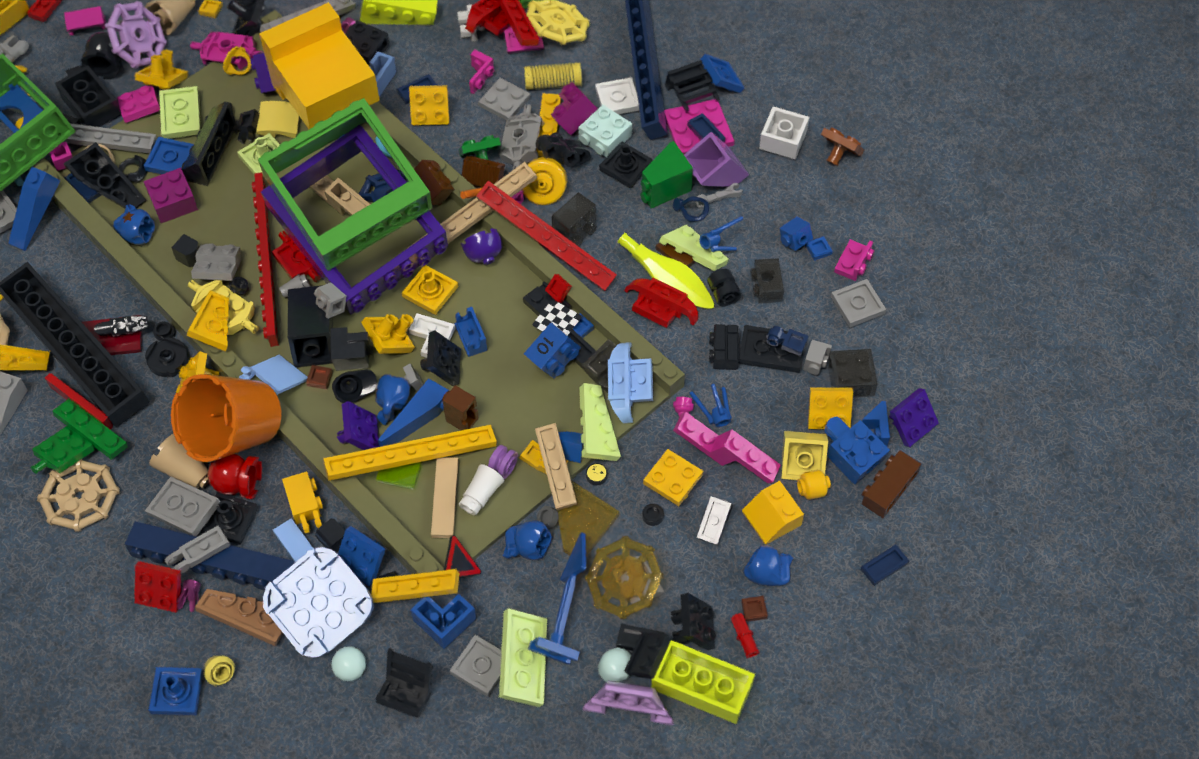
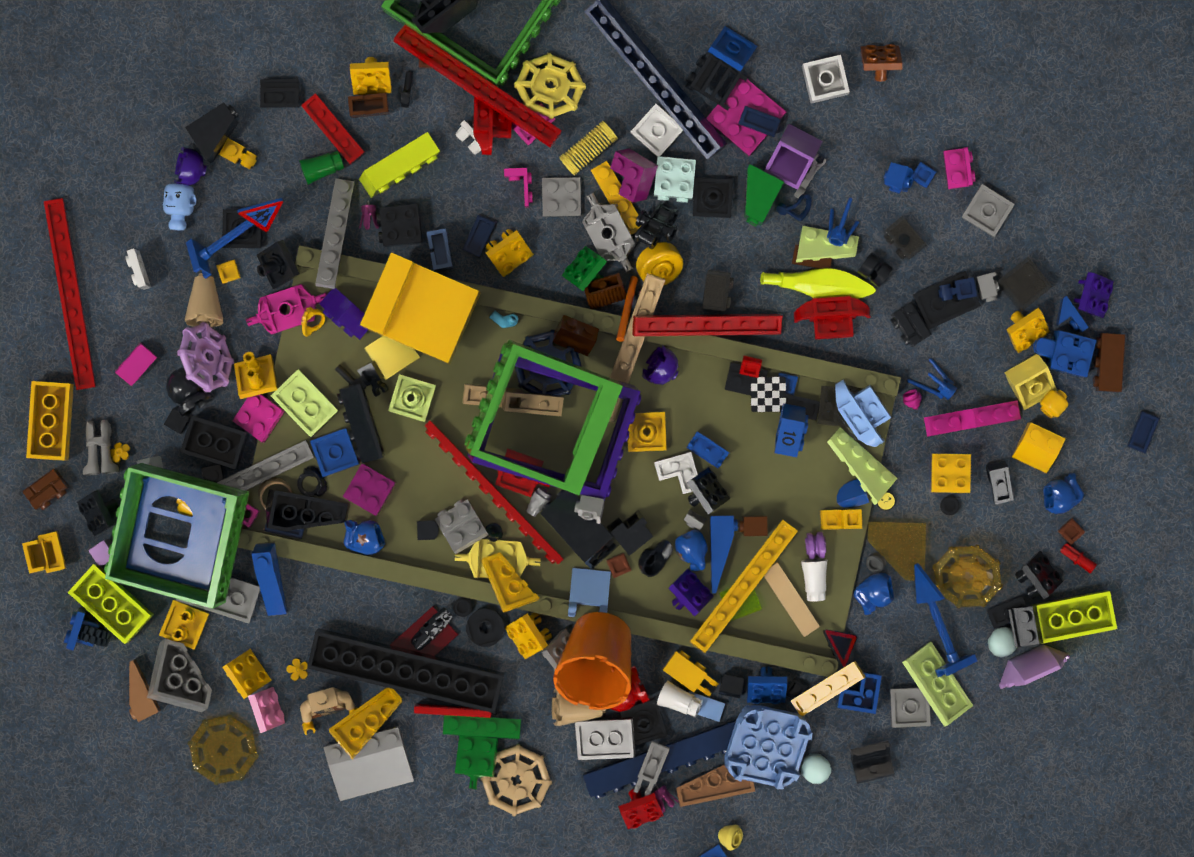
camera: 30 degrees left, 30 degrees up
(274, 513) = (679, 700): none -> white plant
(389, 333) = (649, 497): yellow plate -> none
(556, 466) = (858, 523): tan tile -> none

